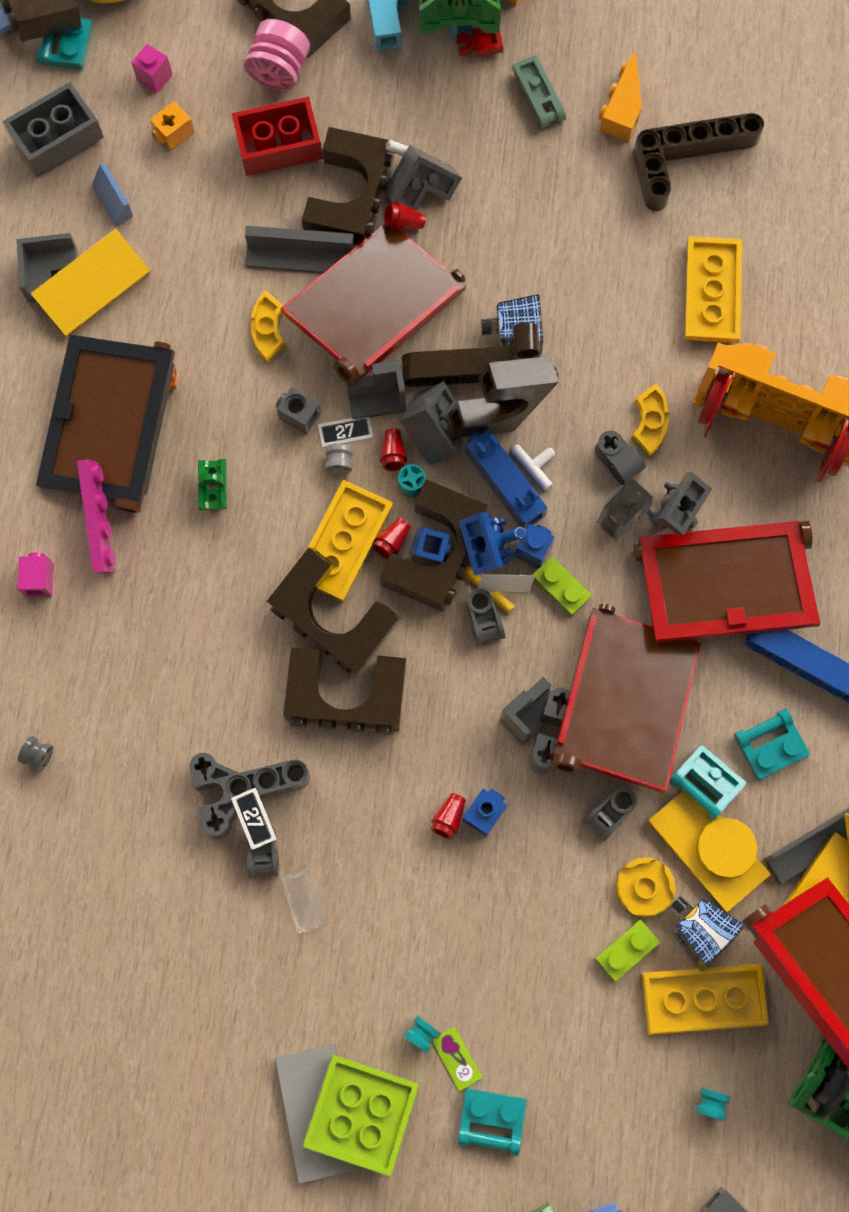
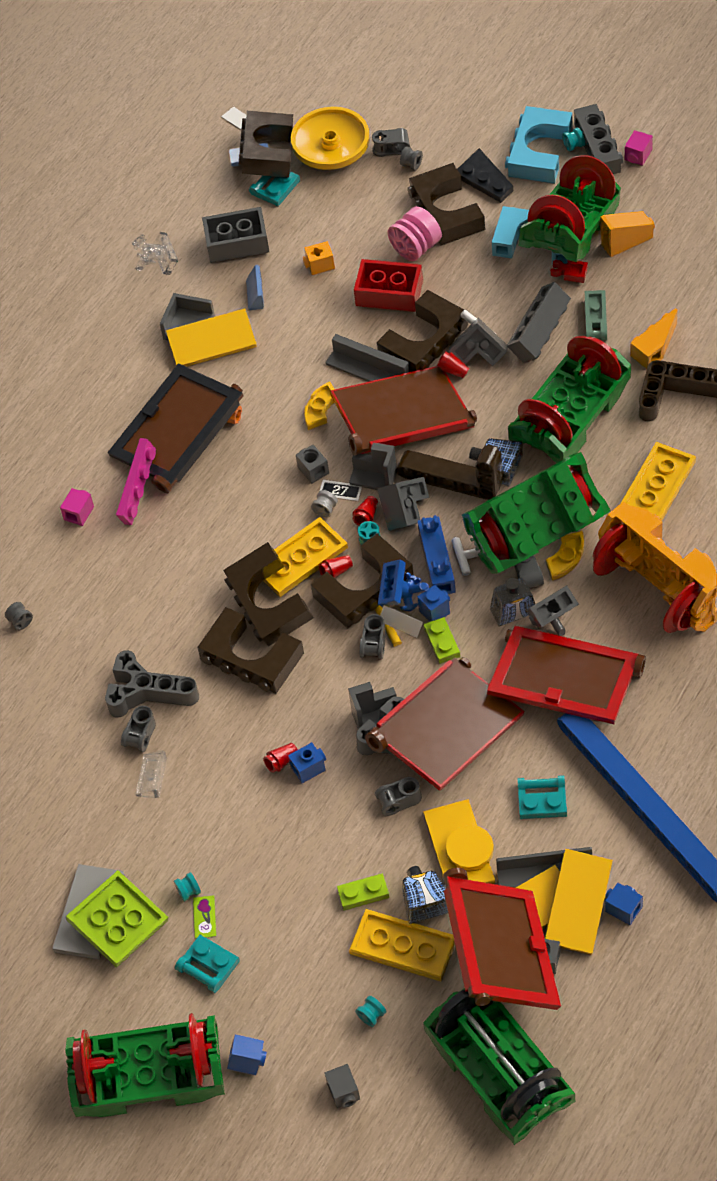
camera: 30 degrees right, 20 degrees down
(152, 68) = (324, 217): dark pink brick -> none
(215, 475) = (232, 486): green hips -> none
(253, 818) = (142, 703): sticker -> none
(430, 544) = (358, 576): blue brick -> none
(480, 125) = (539, 322): none -> dark grey brick
(510, 394) = (461, 473): dark brown arch -> none
(571, 217) = (572, 398): none -> green piece
(611, 392) = (534, 514): none -> green piece
(645, 887) = (397, 855): yellow tile -> none
(713, 776) = (483, 795): plate -> none

